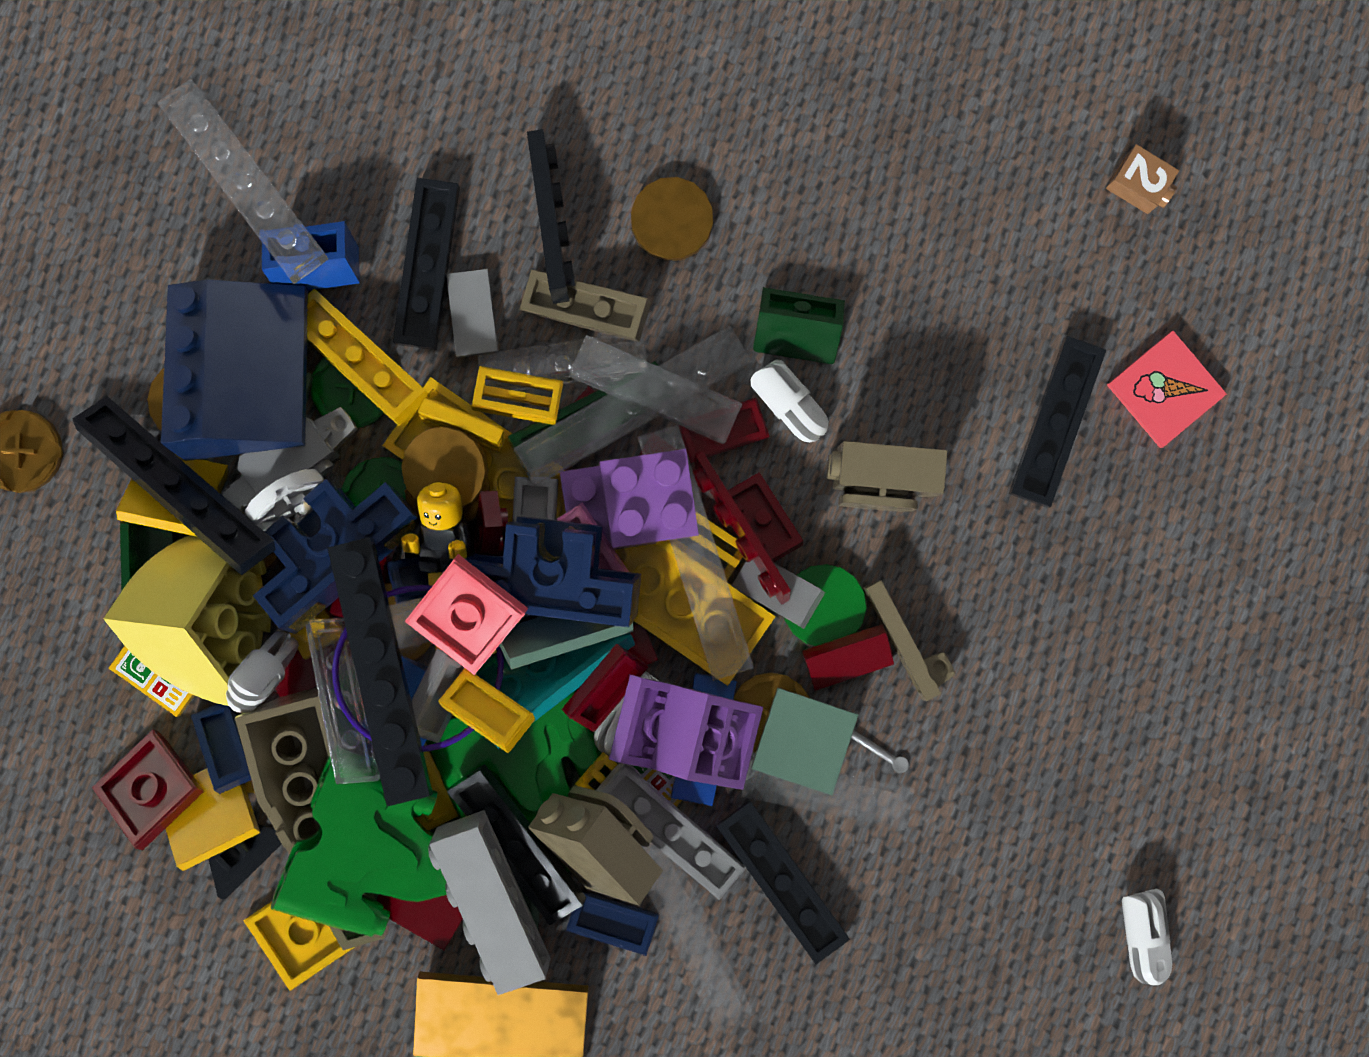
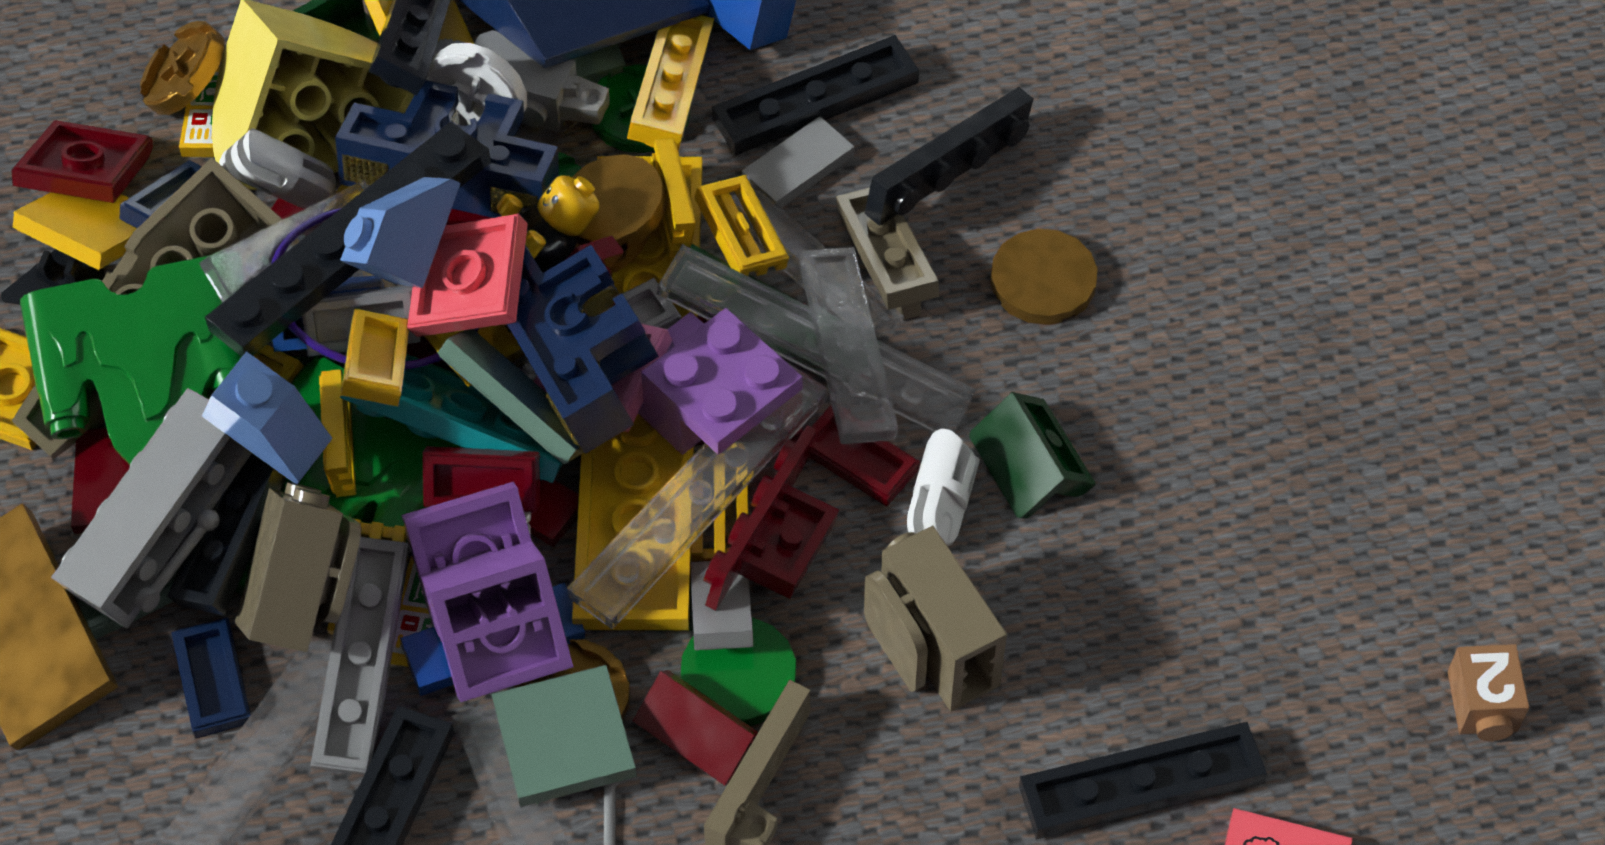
camera: 60 degrees right, 30 degrees down
(112, 679) = (183, 70): none -> pearl gold tile
(408, 640) = (401, 231): none -> medium blue slope
(497, 813) = (268, 418): none -> medium blue slope
(515, 762) = (337, 420): none -> yellow tile
(520, 876) = (149, 597): none -> light grey hinge

